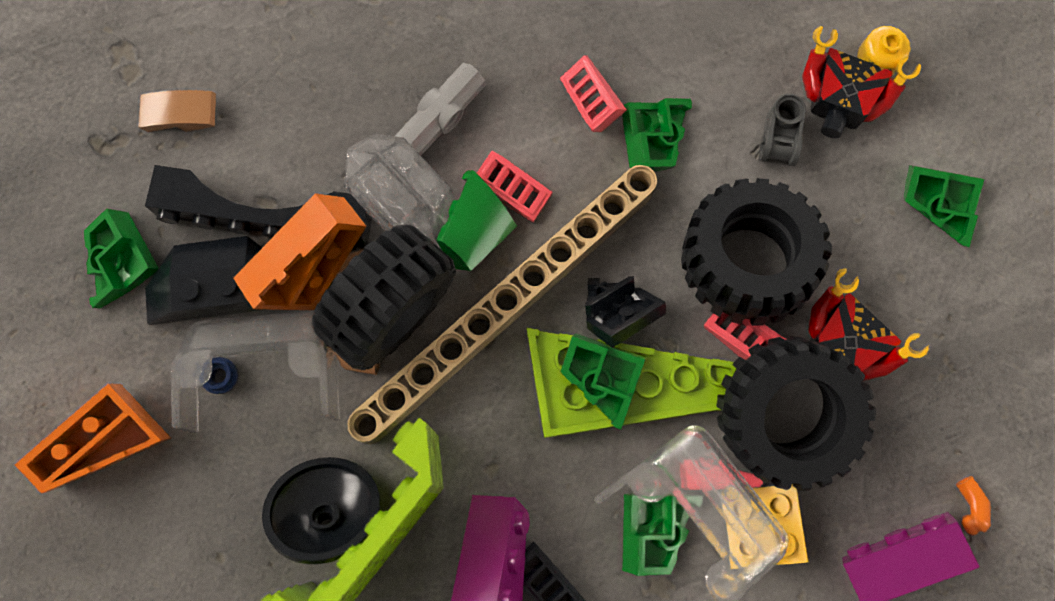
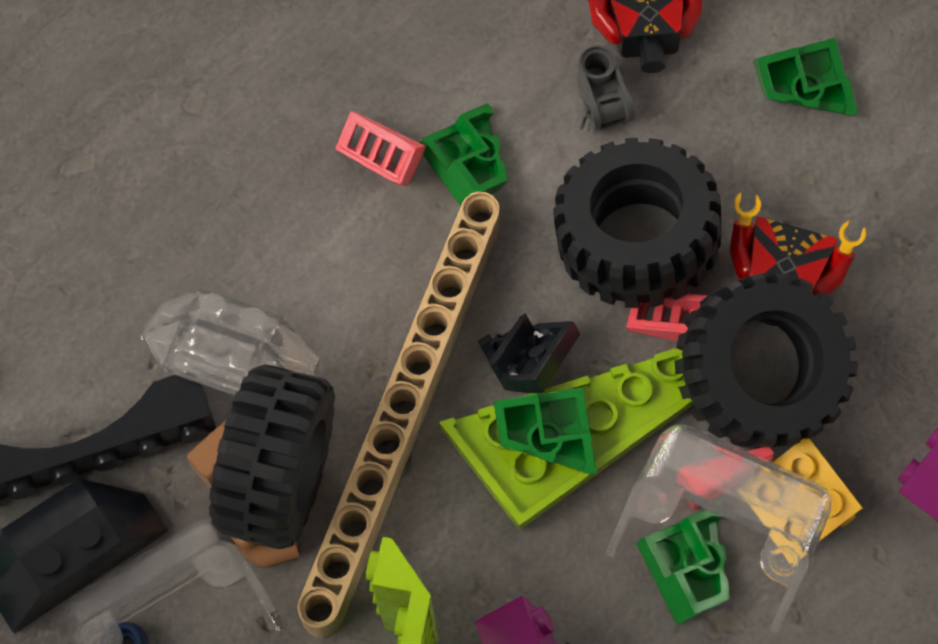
camera: 20 degrees left, 10 degrees down
(302, 256) = (159, 460): orange wedge -> none
(442, 108) = (225, 238): light grey piece -> none
(474, 224) = (326, 338): green slope -> none
(519, 177) = (331, 269): coral slope -> none

